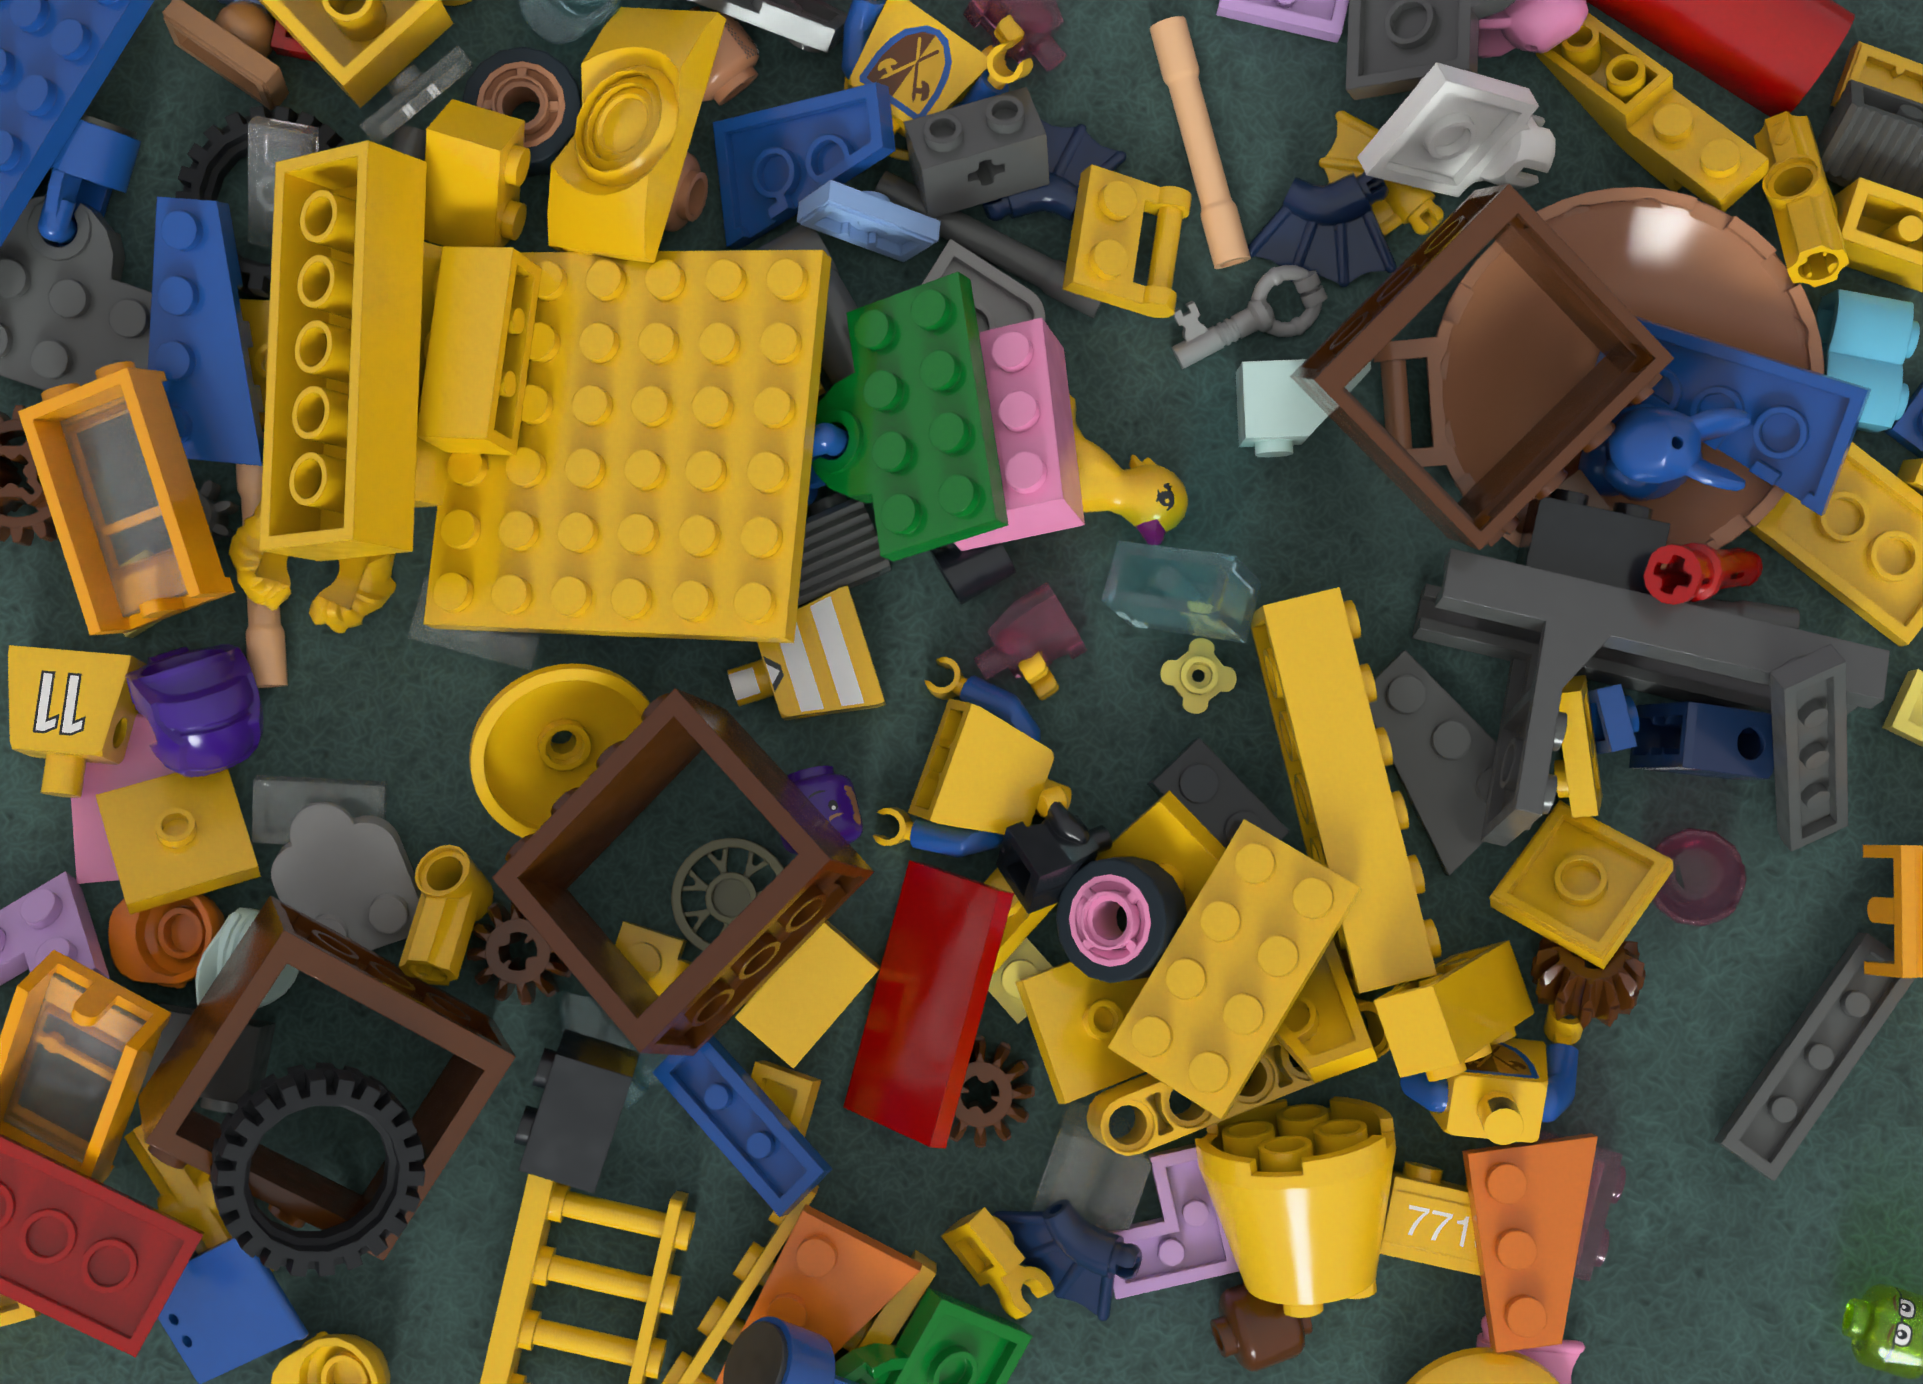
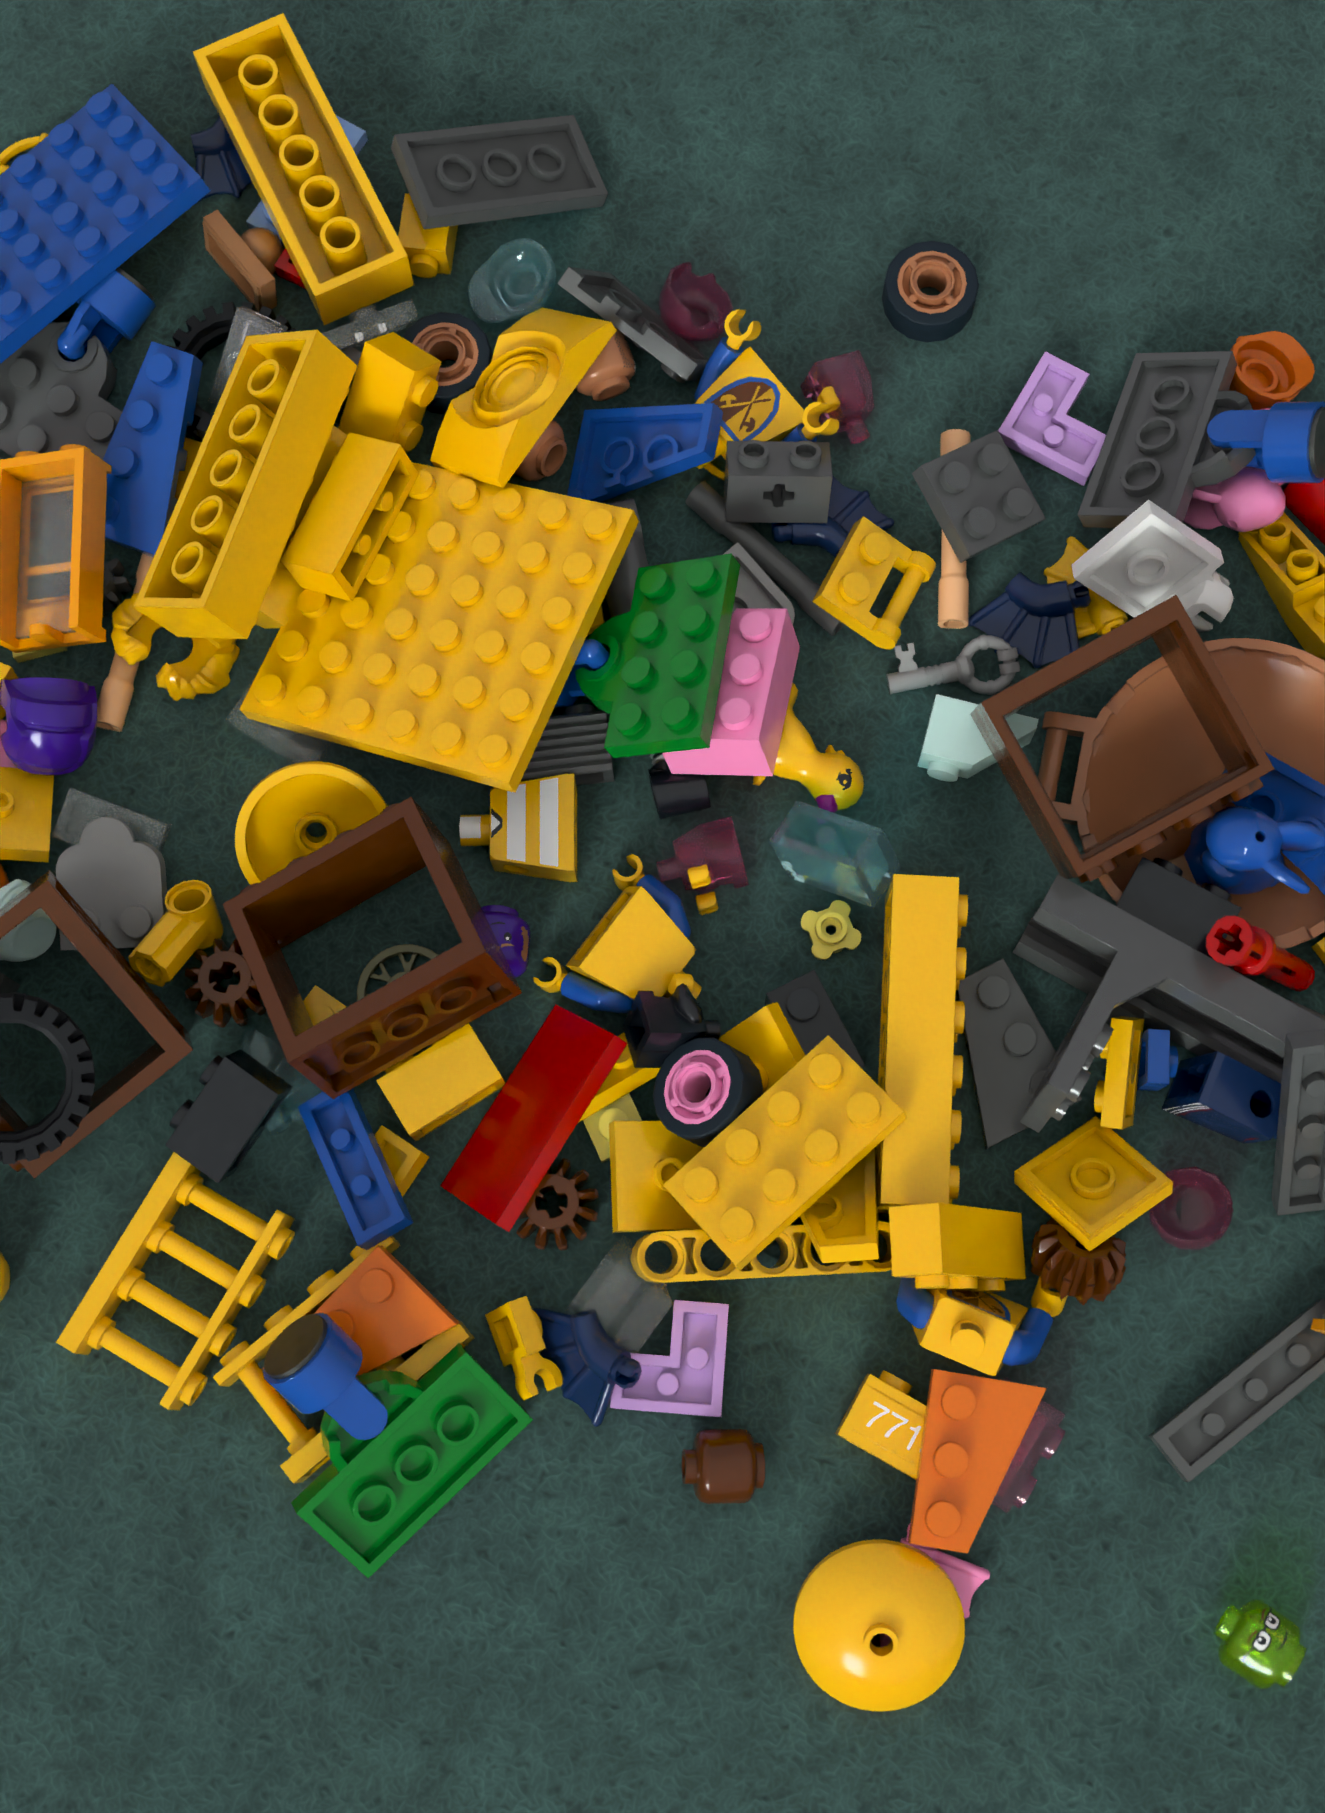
camera: 25 degrees right, 10 degrees down
(868, 221) = (678, 509): light blue plate -> none
(1220, 97) = (978, 496): none -> dark grey plate
(1302, 1198) = (786, 1367): yellow cone -> none

